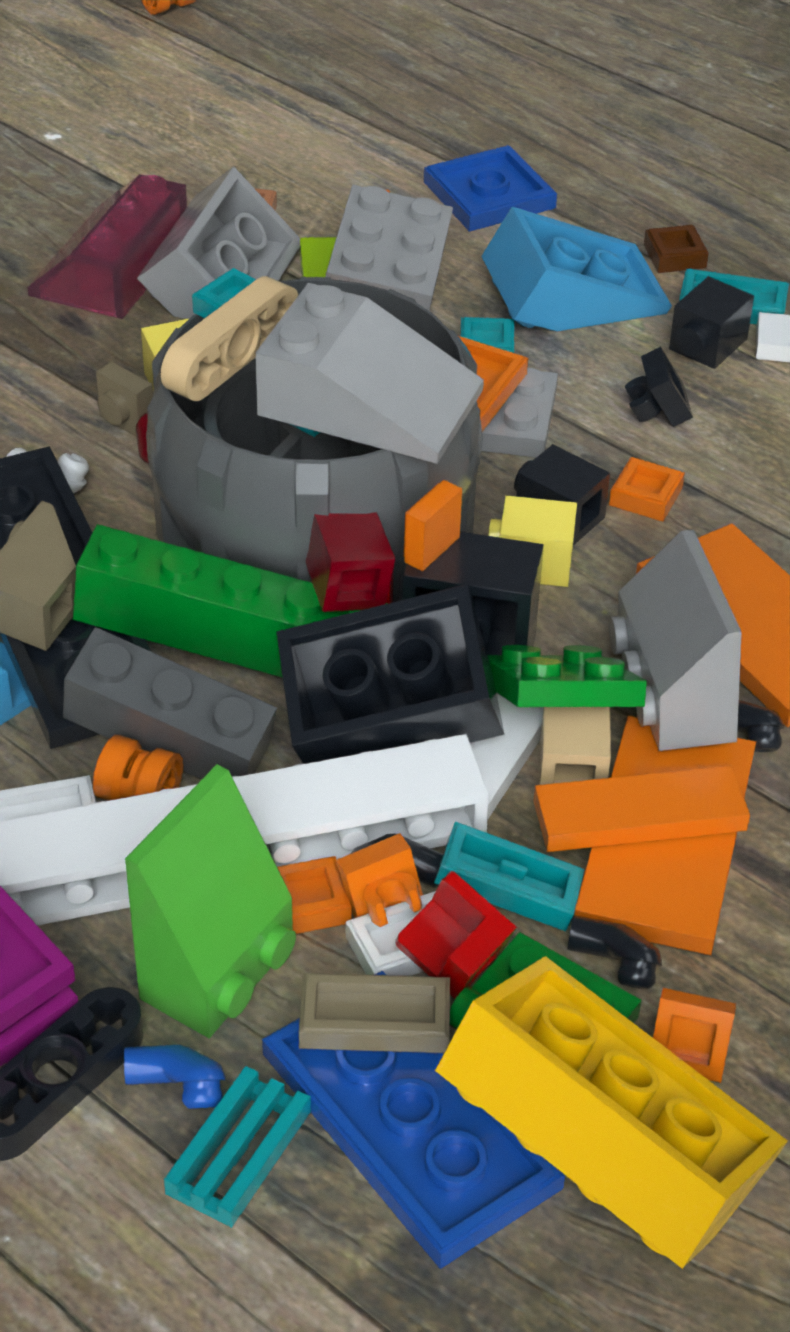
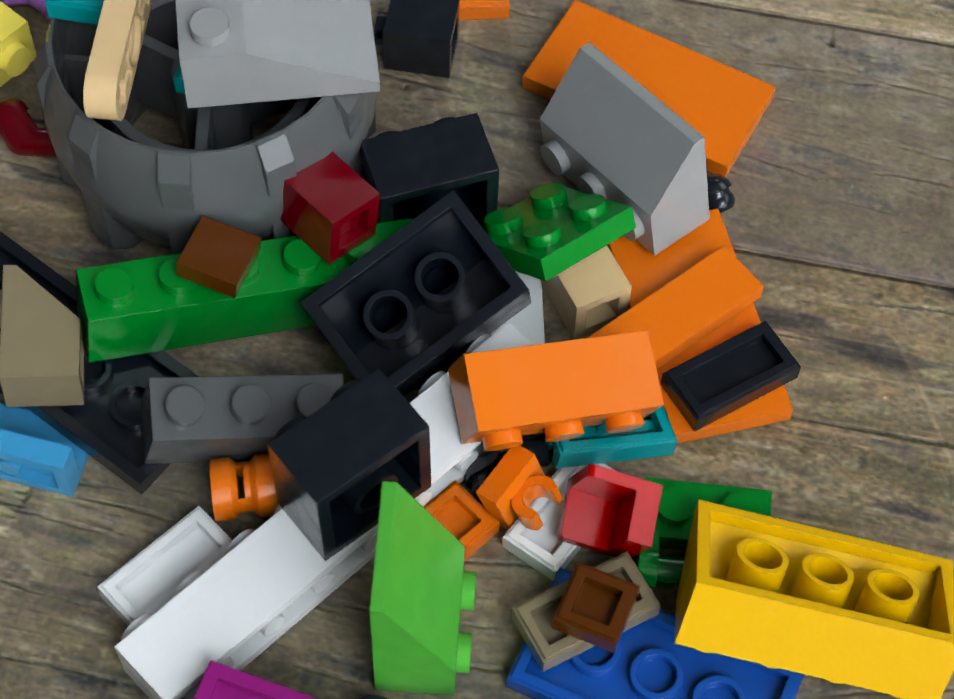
camera: 30 degrees left, 15 degrees up
(222, 559) = (218, 256): none -> reddish brown tile
(223, 724) = (335, 461): none -> black brick
(379, 1004) = (595, 607): none -> reddish brown tile
(432, 525) = (386, 142): orange tile -> none
(463, 796) = (555, 389): none -> orange brick
(542, 523) = (427, 87): light yellow brick -> none
(619, 943) = (728, 446): black arm -> none
(665, 880) = (730, 375): none -> black tile
(695, 1030) = (831, 499): orange tile -> none

